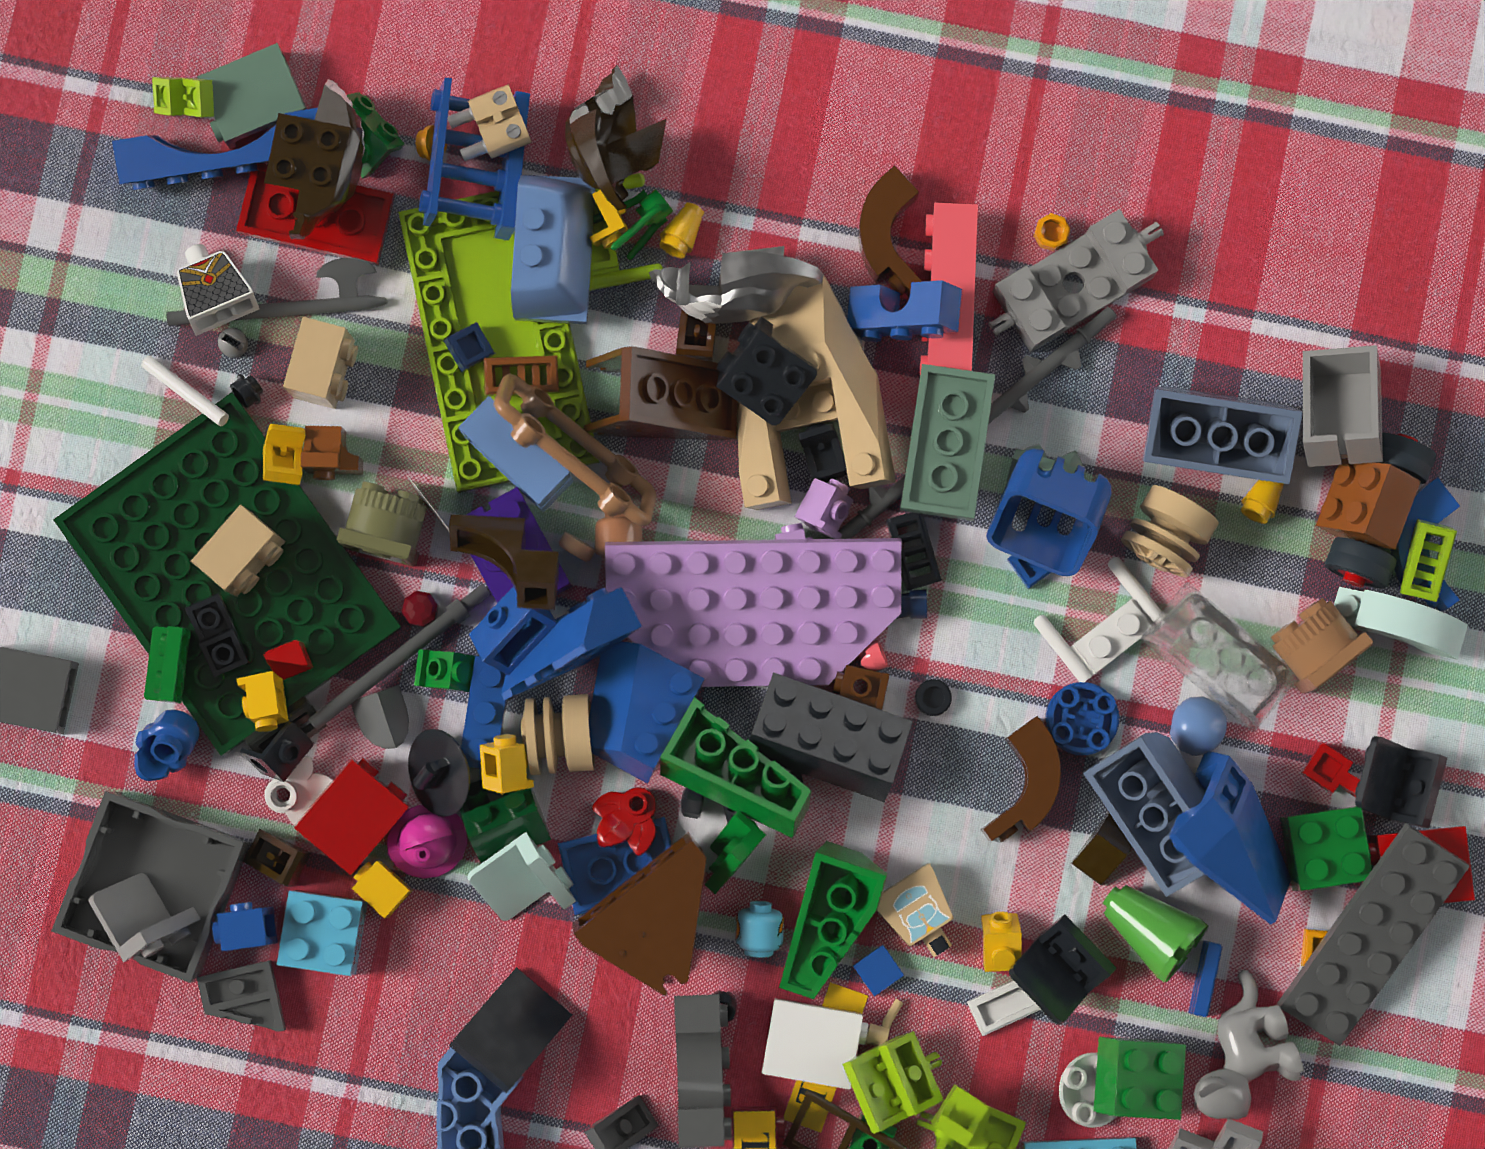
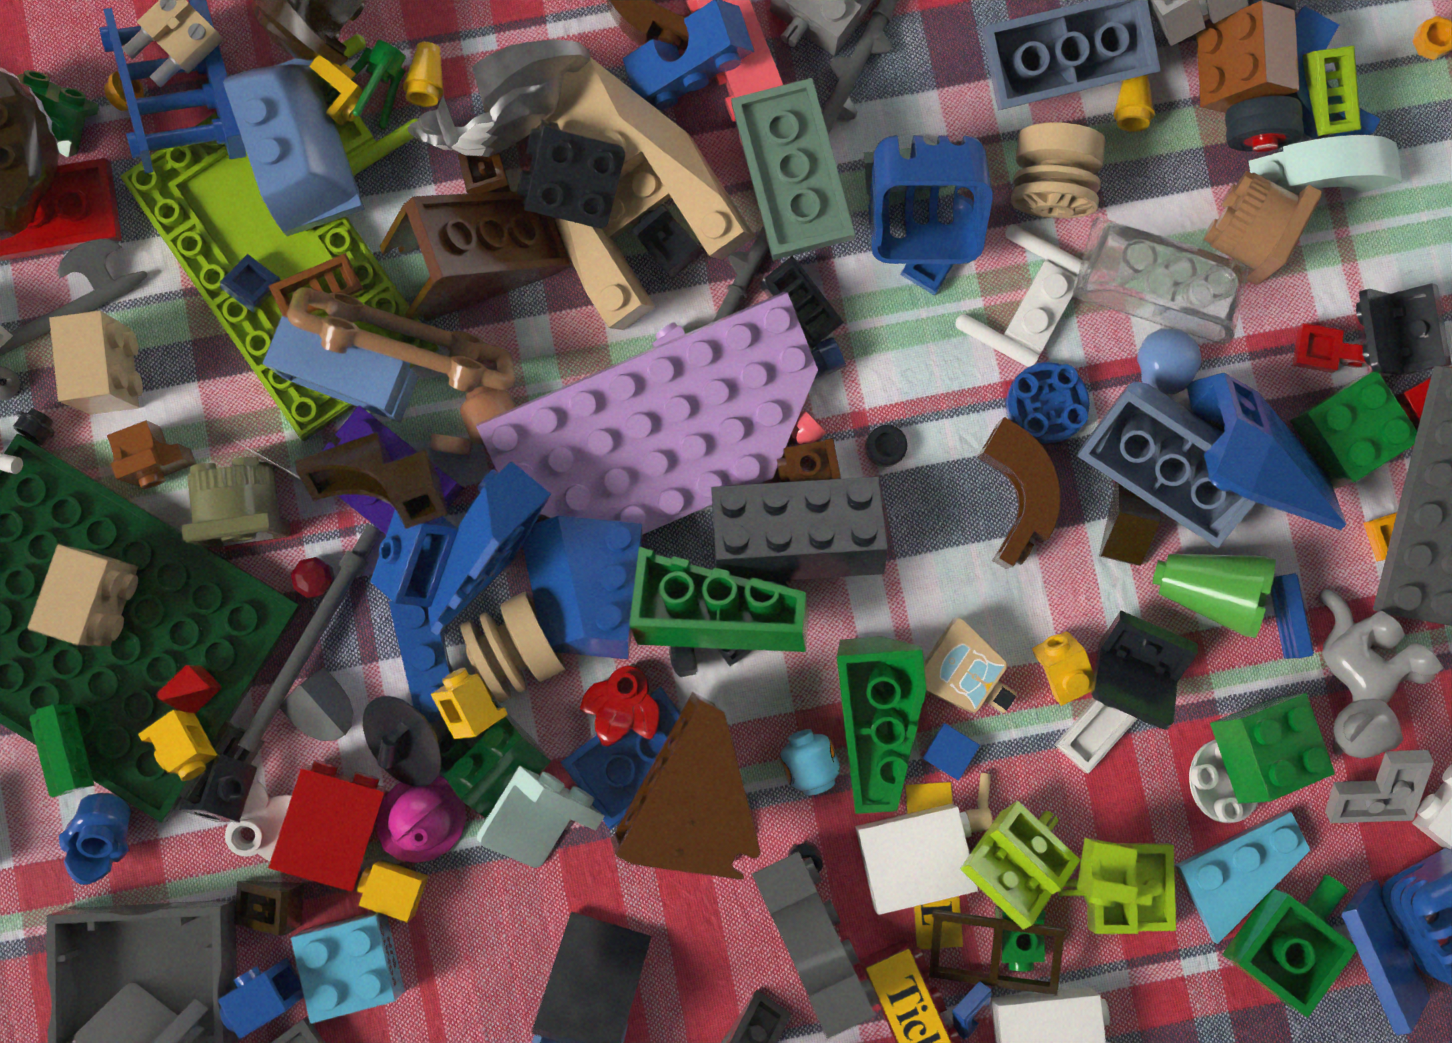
camera: 30 degrees left, 0 degrees up
(216, 634) = (103, 695): black slope -> none
(283, 454) = (93, 474): yellow bracket -> none
(444, 670) = (362, 631): green brick -> none
(733, 847) = (747, 689): green bracket -> none
(825, 507) = (692, 295): lavender brick -> none

